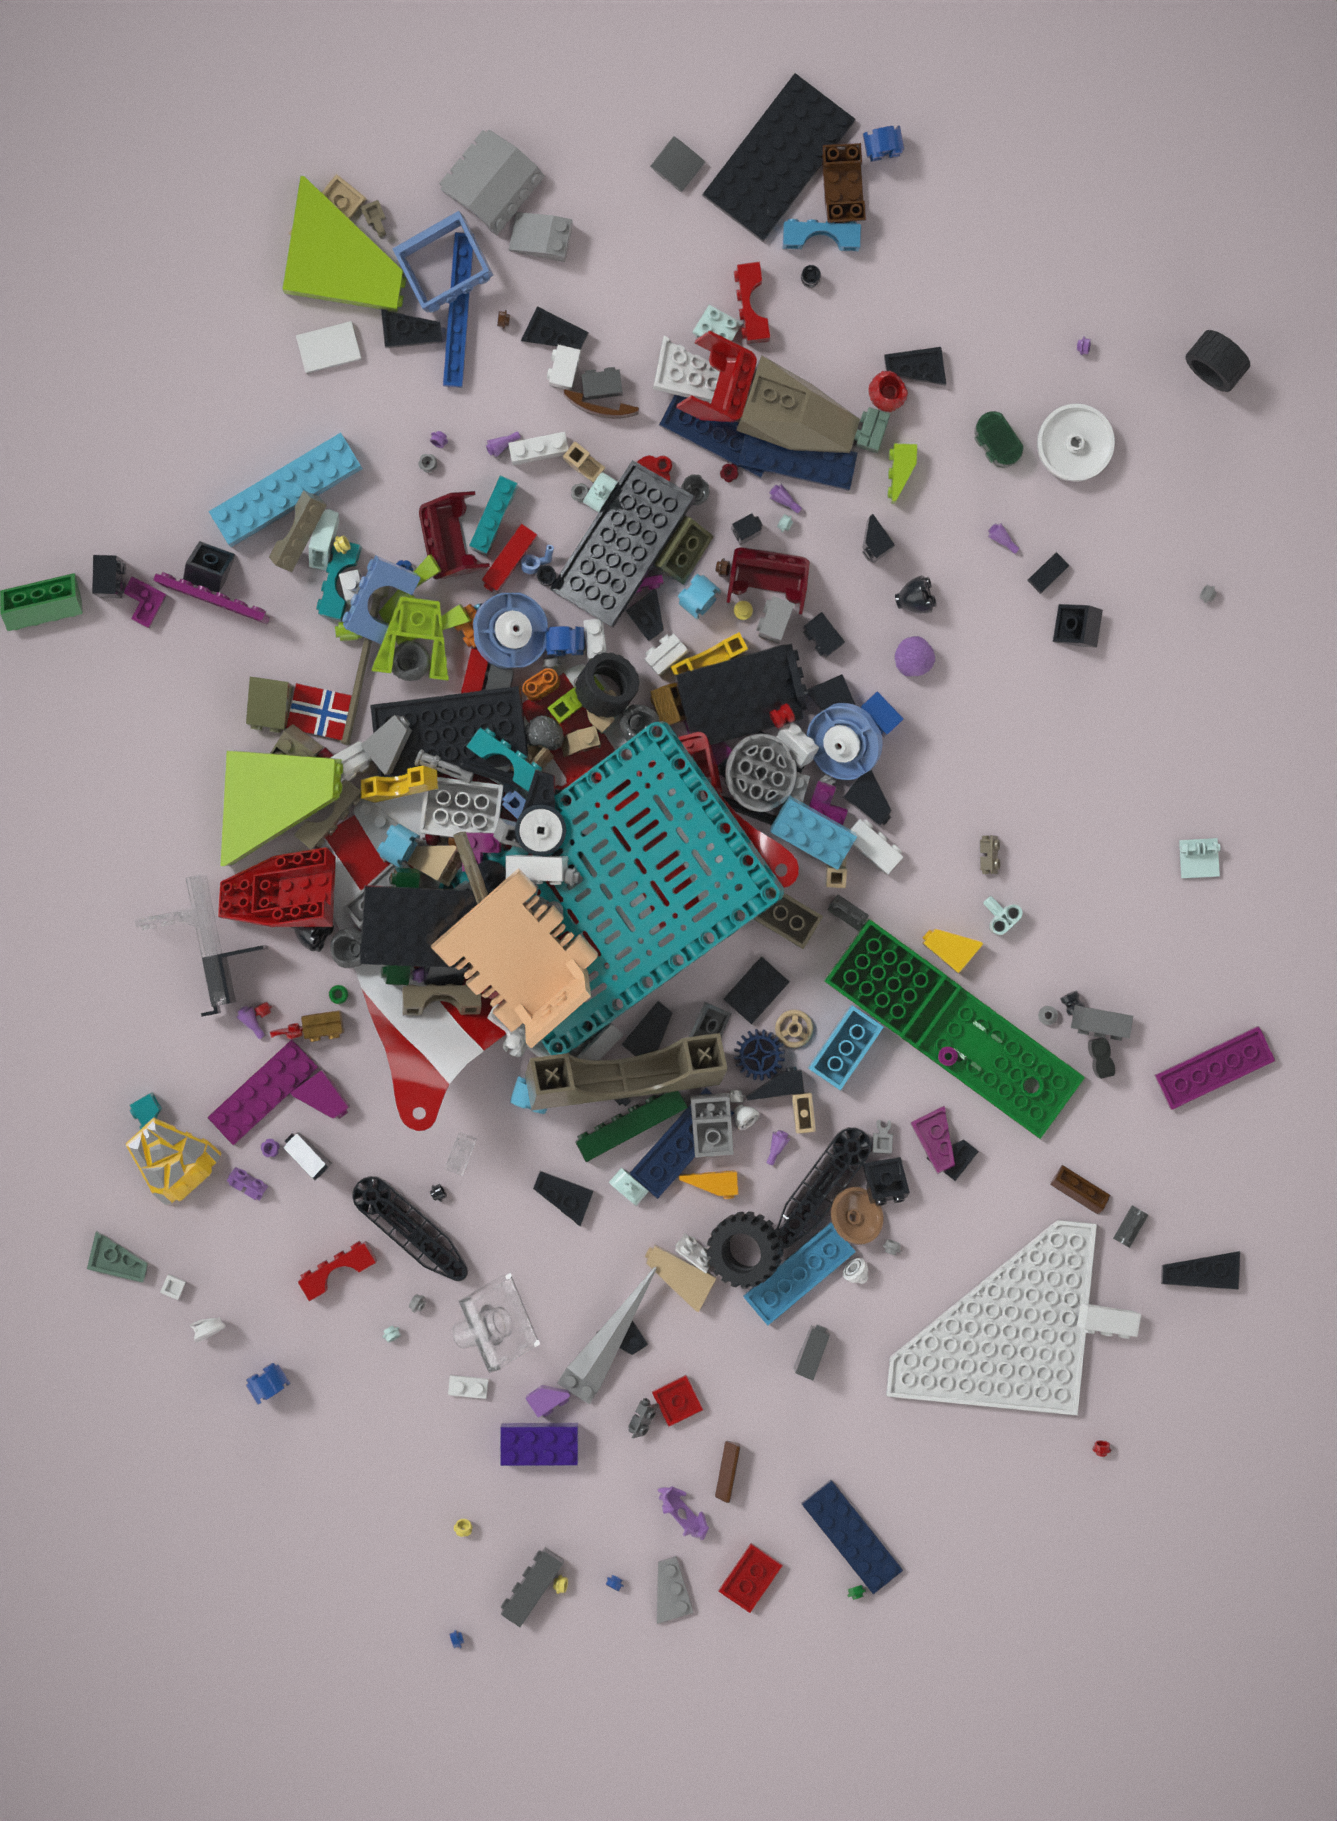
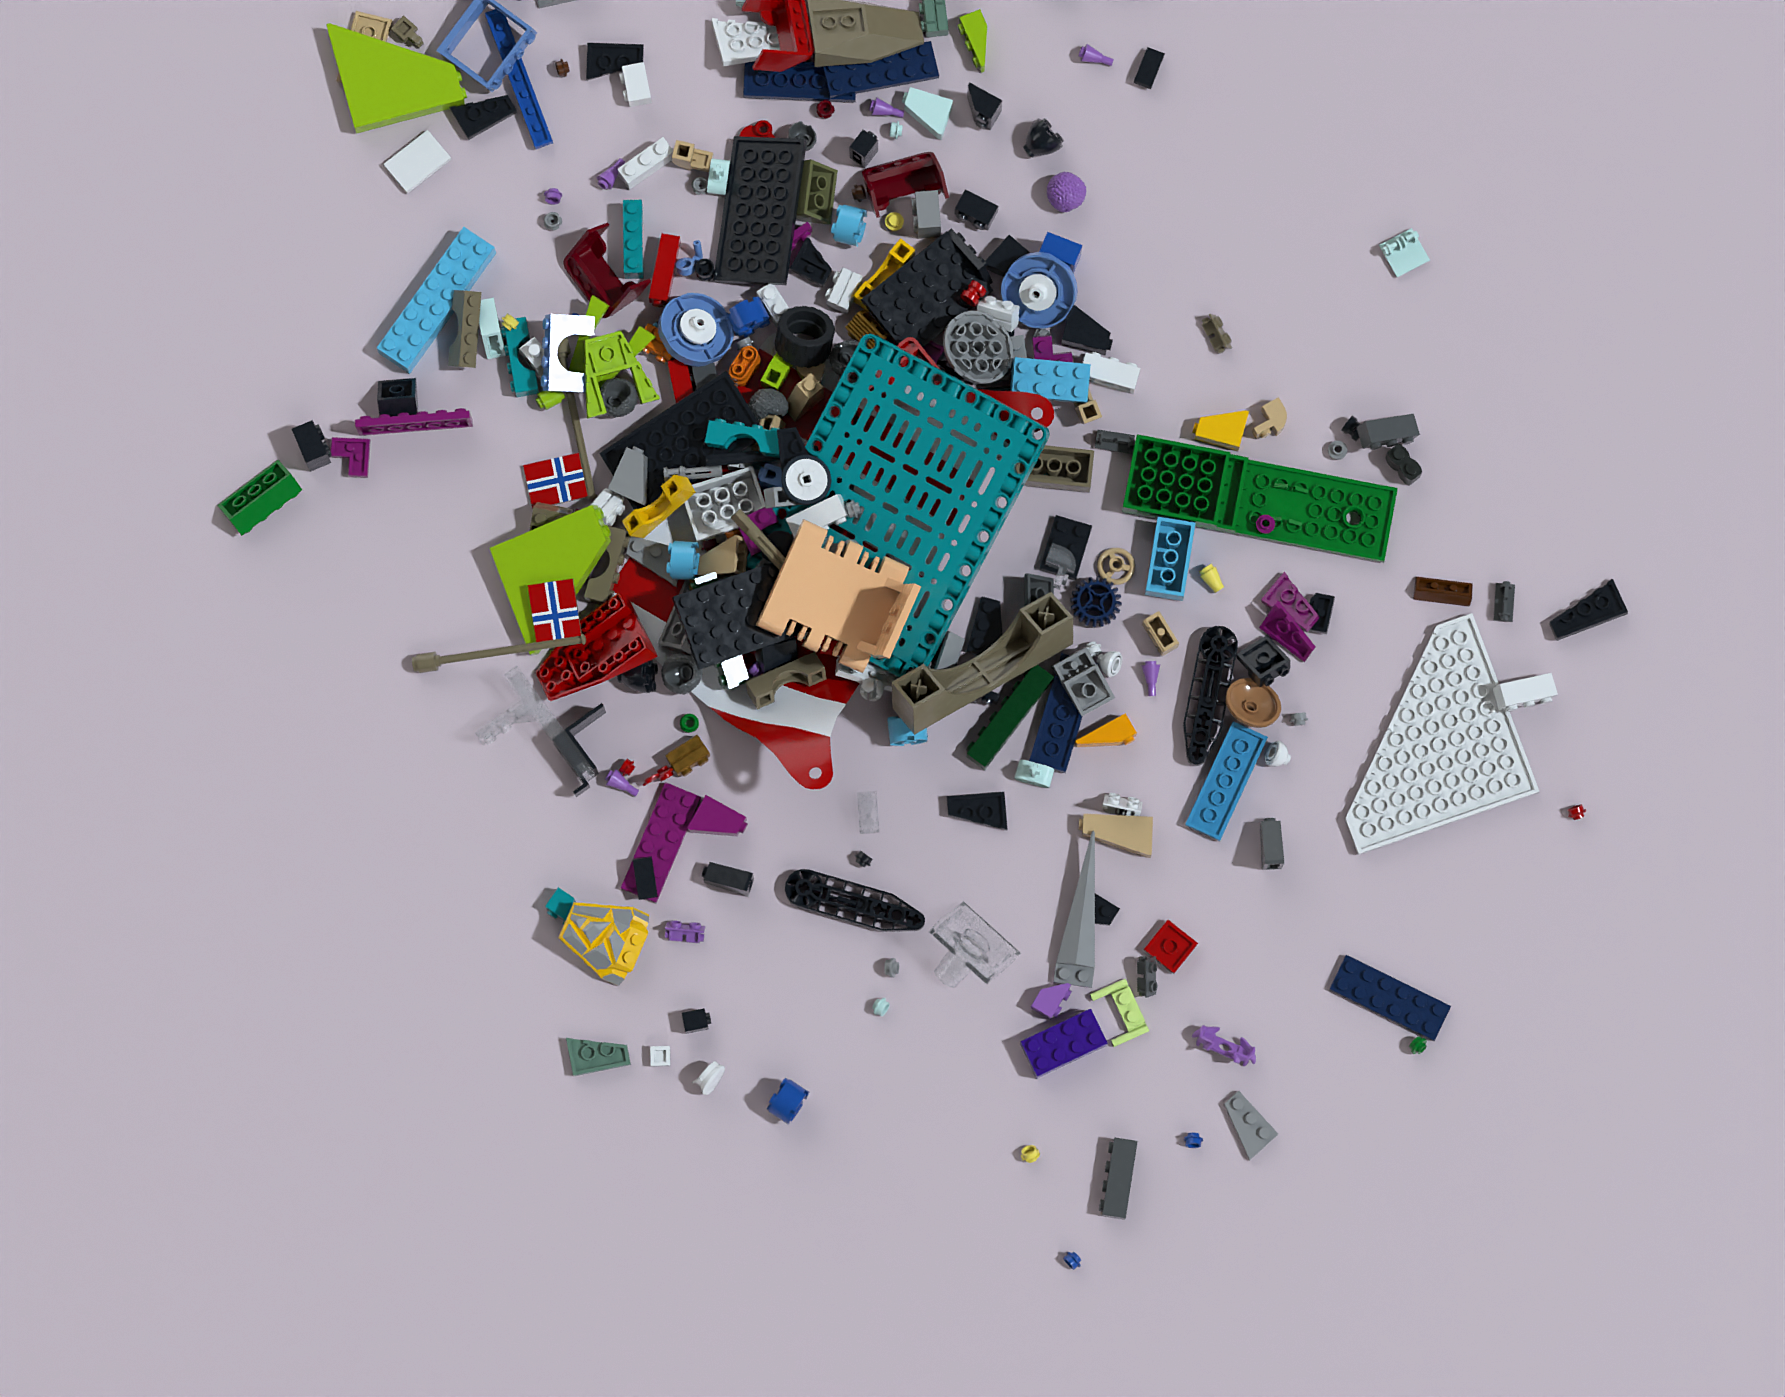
camera: 25 degrees left, 10 degrees down
(219, 1270) = (696, 1020): none -> black brick
(231, 1121) = (645, 878): none -> black slope
(254, 847) = (554, 622): none -> flag
(265, 1148) = (691, 884): medium lavender plate -> none
(268, 704) = (507, 492): olive slope -> none
(358, 1258) = (817, 951): red arch -> none
(468, 1386) = (973, 1023): white plate -> none
(560, 1584) = (1144, 1164): light yellow plate -> none
(577, 400) = (708, 97): reddish brown slope -> none
(602, 384) = (676, 83): dark grey brick -> none
(611, 1437) = (1127, 1008): none -> yellowish green plate
(727, 1471) = (1247, 990): reddish brown slope -> none
(728, 1266) = (1192, 777): black tyre -> none
(748, 1007) = (1061, 559): none -> clear brick
(750, 1577) = (1315, 1077): red plate -> none
(783, 1084) = (1128, 620): black slope -> none
(824, 518) = (929, 110): none -> light aqua slope
(875, 1079) = (1211, 577): none -> light yellow cone
(882, 1141) = (1244, 627): light grey plate -> none
(919, 1163) = (1287, 632): none -> magenta wing
(1001, 914) = (1253, 380): light aqua beam -> none
(1006, 959) = (1276, 418): none -> tan brick
(1077, 625) = (1197, 100): black slope -> none
(1208, 593) = (1298, 22): light grey plate -> none
(1214, 1067) = (1509, 428): magenta plate -> none

